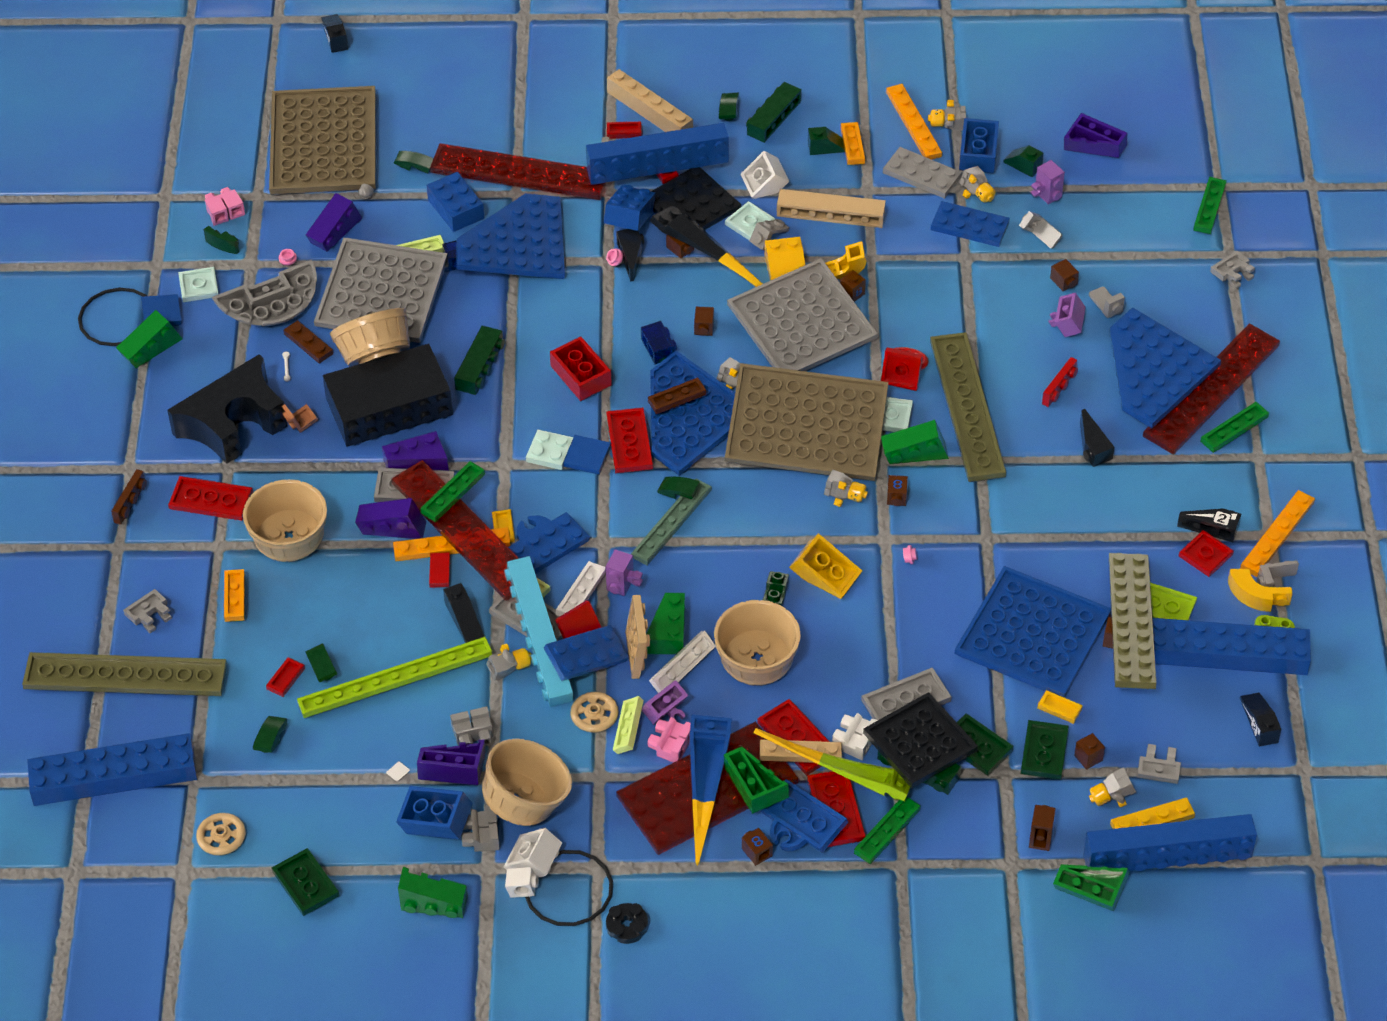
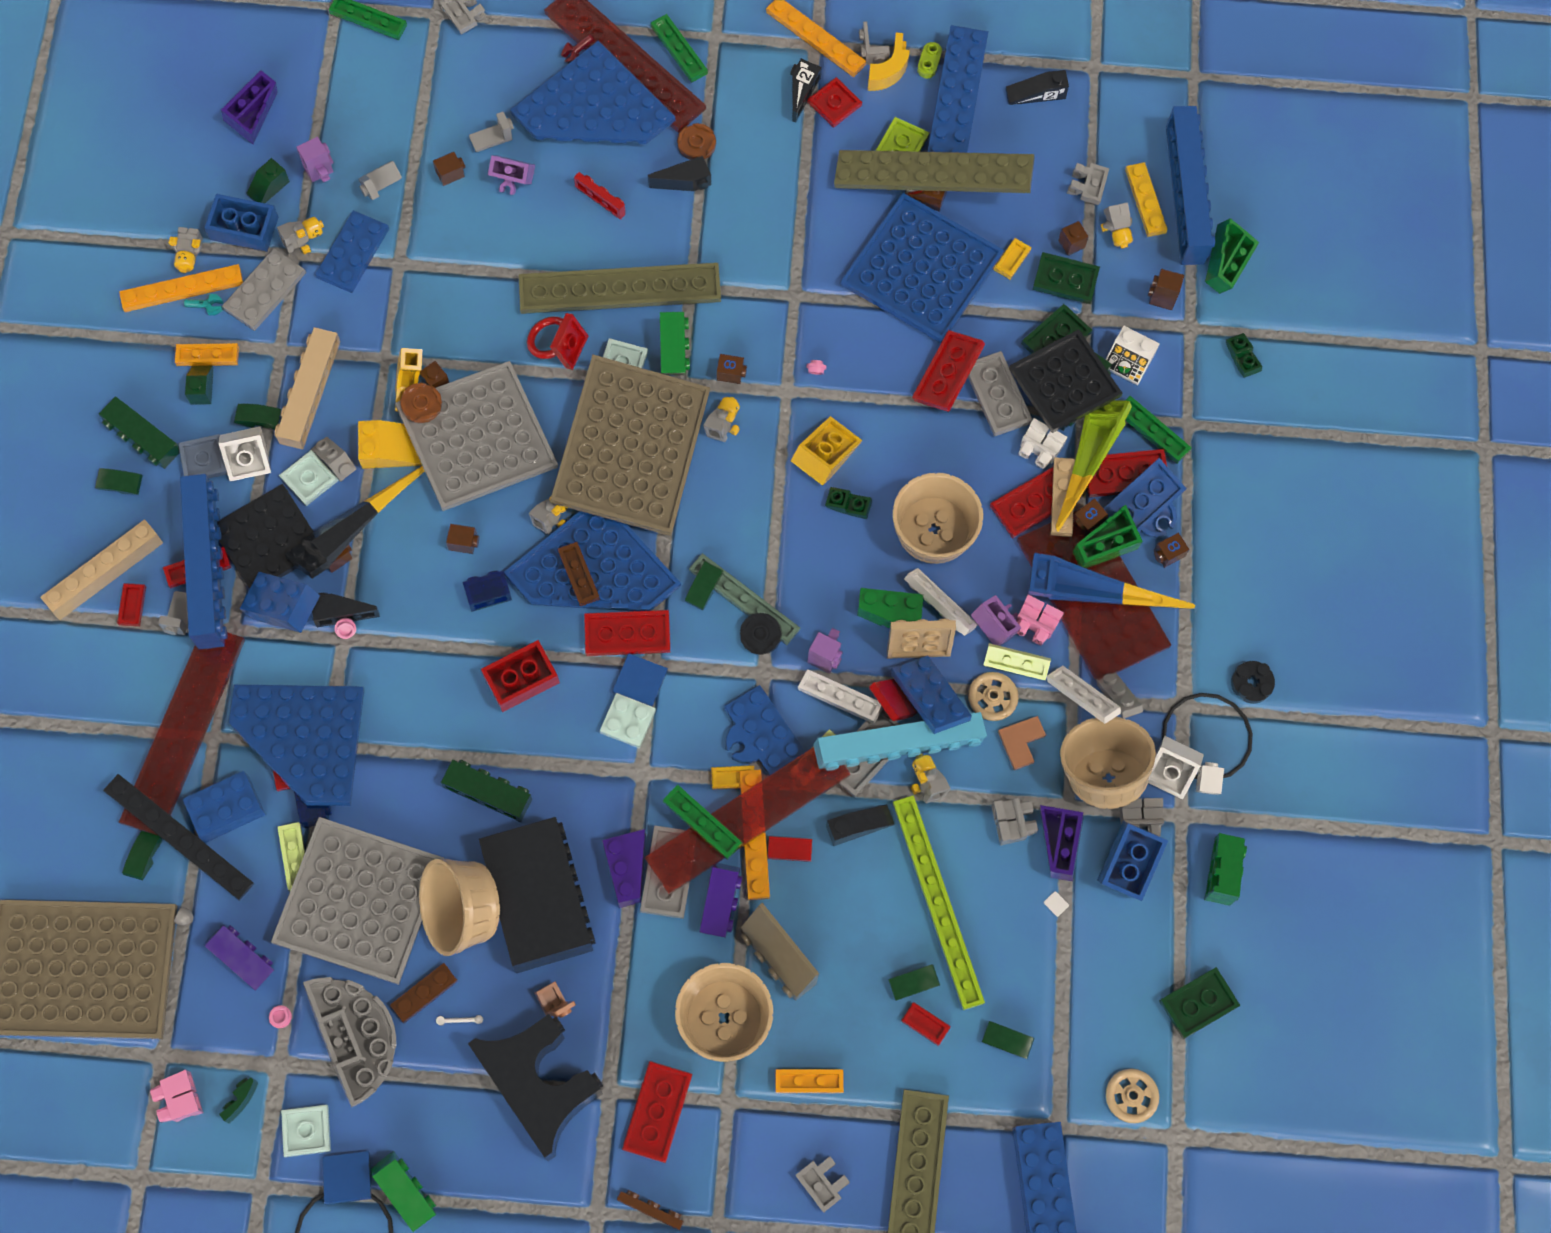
camera: 90 degrees left, 20 degrees up
(343, 560) = (779, 953): none -> dark tan slope
(433, 171) = (178, 837): none -> black plate
(554, 731) = (1016, 738): none -> nougat tile
(594, 768) = (1084, 694): none -> white plate
(597, 799) = (1119, 693): none -> light grey plate
(637, 532) = (760, 633): none -> black tile
(752, 148) = (202, 457): none -> sand blue plate
(781, 766) = (1091, 516): none -> reddish brown brick
(800, 178) = (256, 414): none -> dark green slope
(822, 274) = (421, 403): none -> dark orange tile
(901, 138) = (211, 310): none -> teal bar
(920, 653) = (948, 371): none -> red plate
(966, 806) = (1131, 355): none -> white slope
(986, 909) = (1243, 355): none -> dark green slope
(1136, 451) = (696, 141): none -> dark orange tile
(1212, 348) = (574, 50): none -> dark red bar

